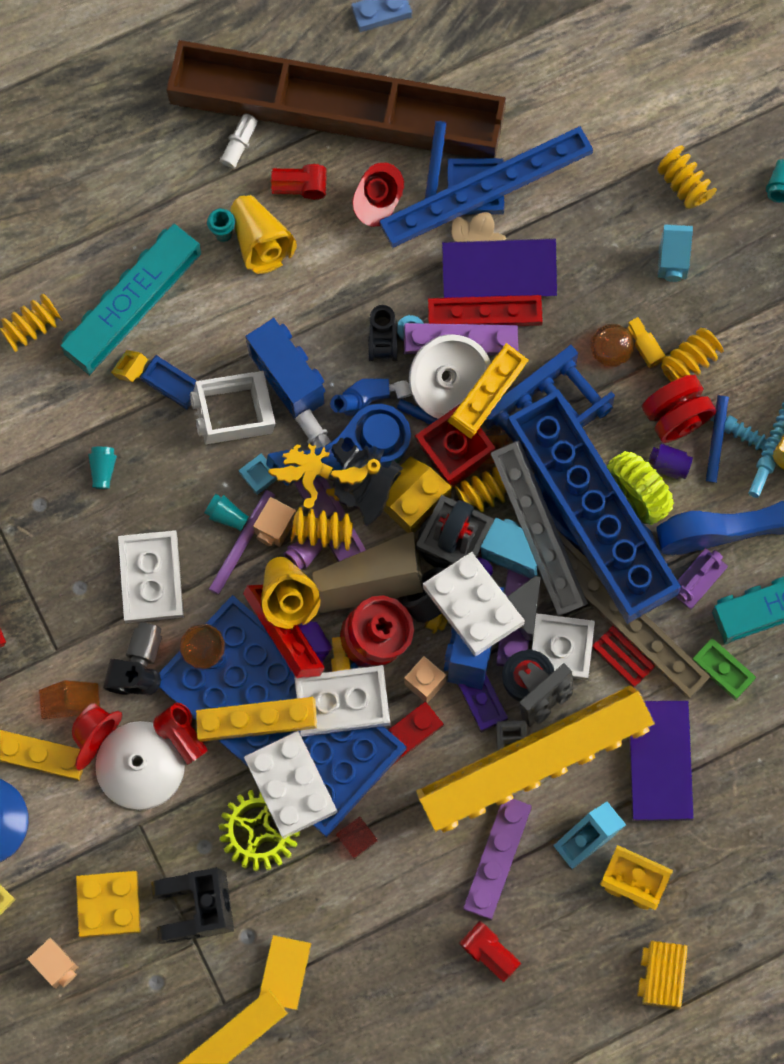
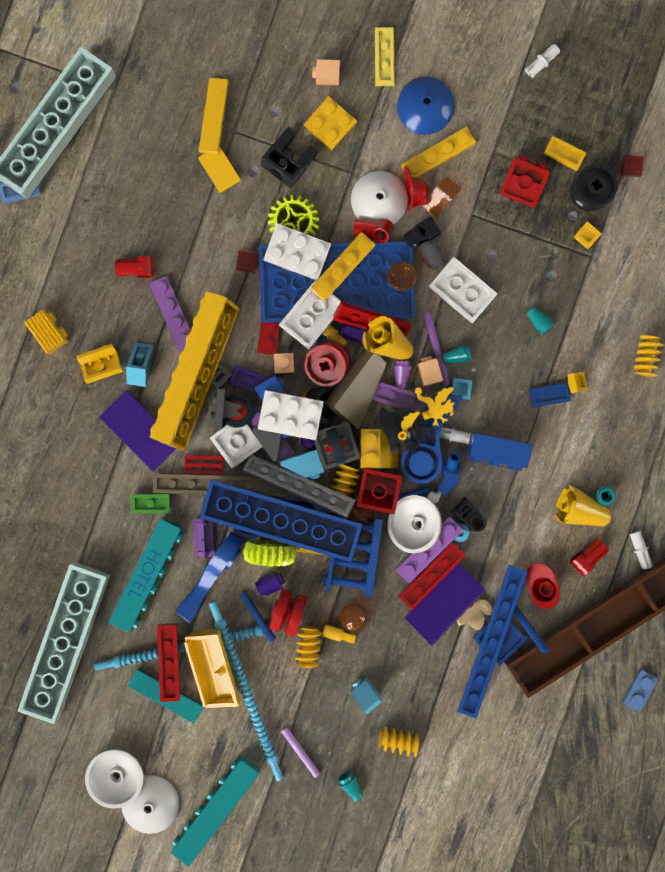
camera: 130 degrees right, 15 degrees up
(130, 299) = (611, 416): teal brick -> none
(249, 381) = (496, 426): white window -> none
(322, 529) = (402, 387): yellow piece -> none
(488, 390) = (388, 532): yellow tile -> none

